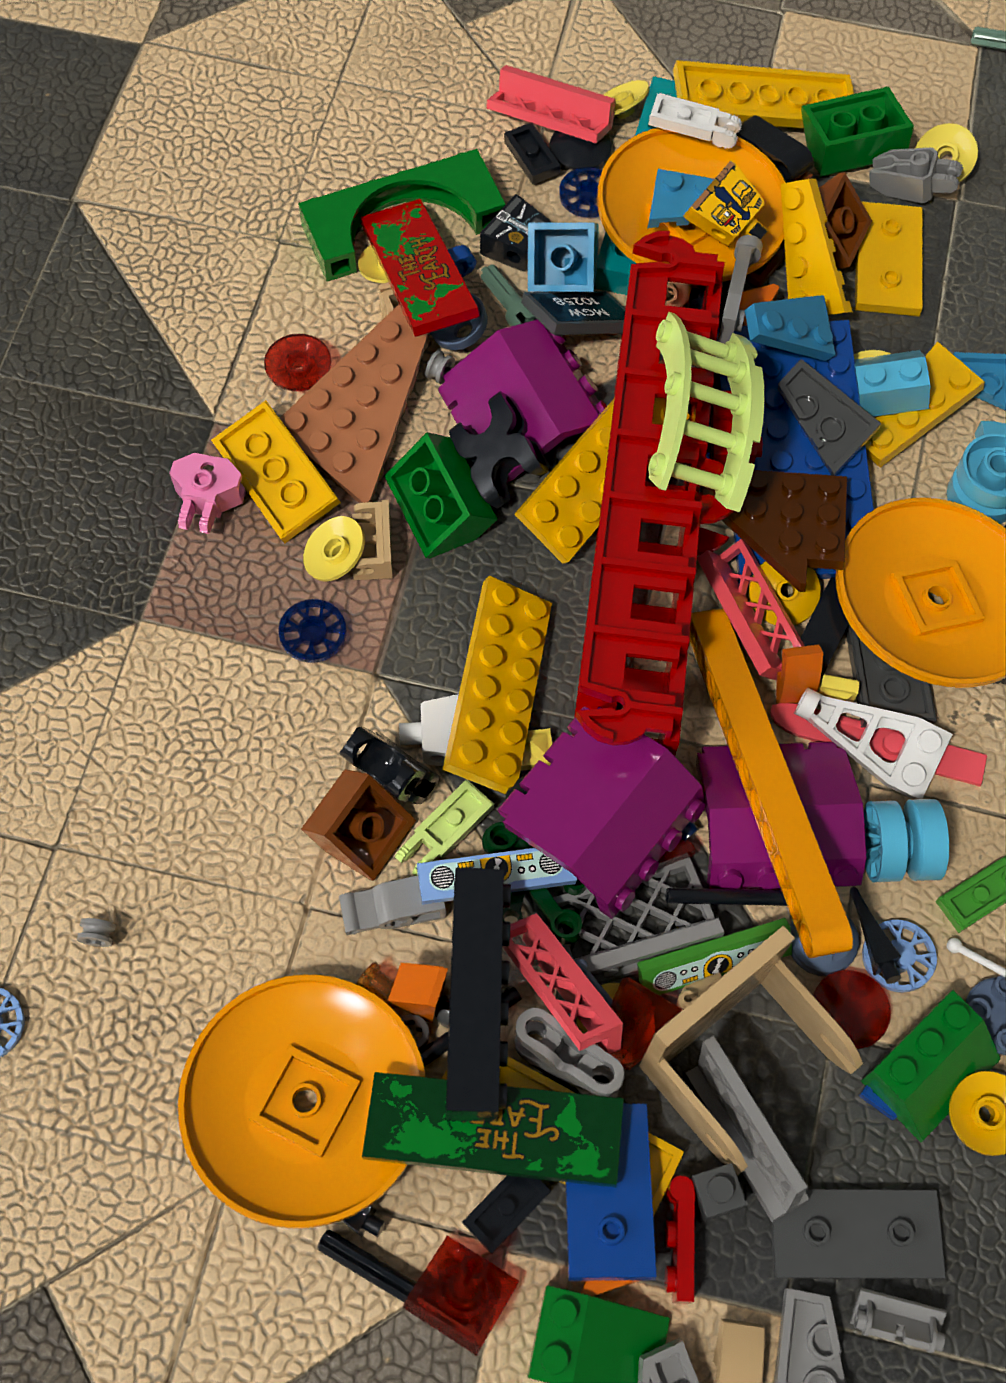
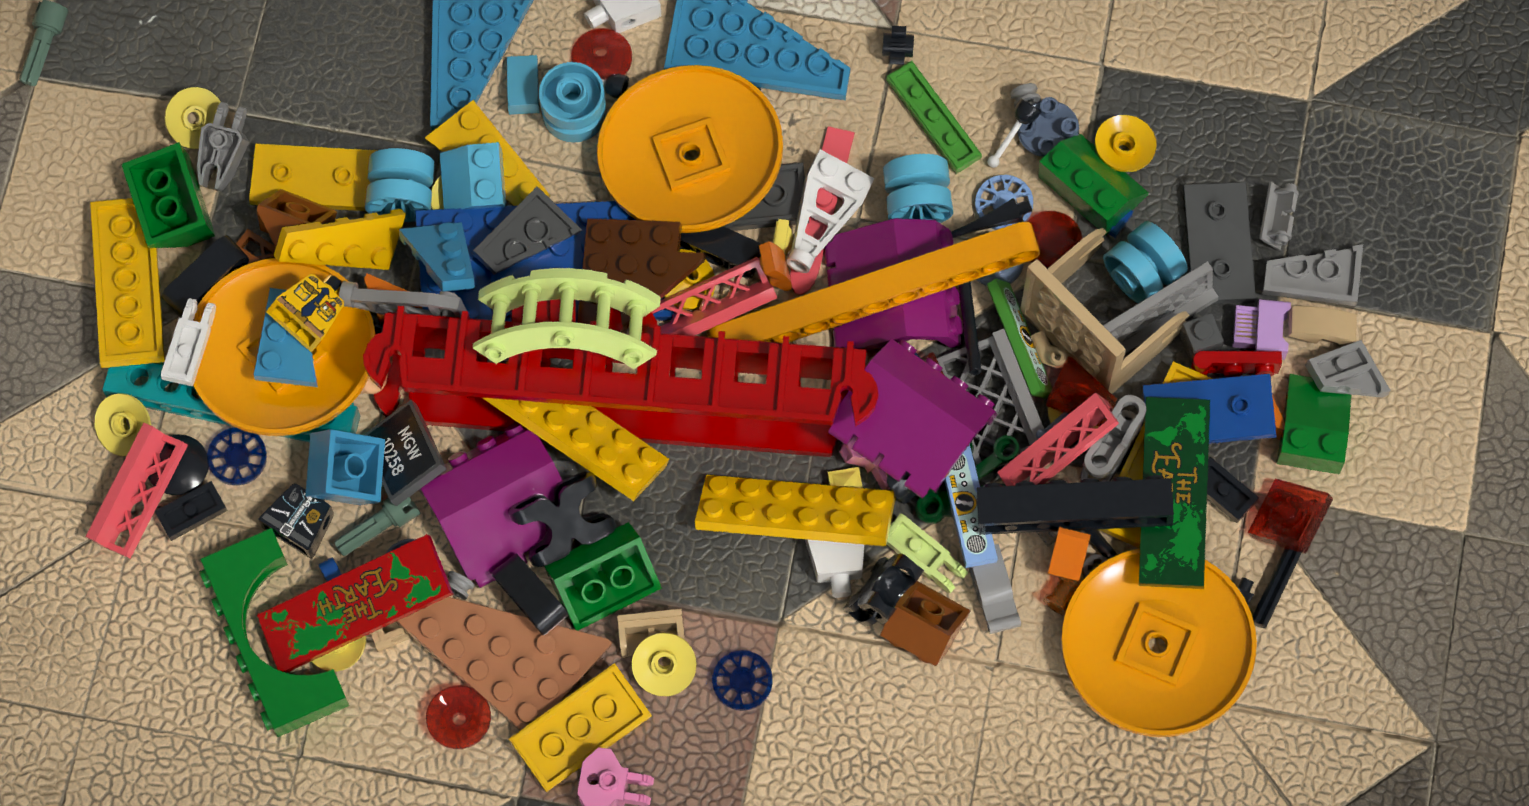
camera: 90 degrees left, 5 degrees up
(407, 420) = (530, 594): none -> black beam
(732, 1281) = (1261, 326): none -> lavender piece
(808, 1110) = (1145, 262): none -> medium azure wheel
(886, 316) = (399, 181): none -> medium azure wheel

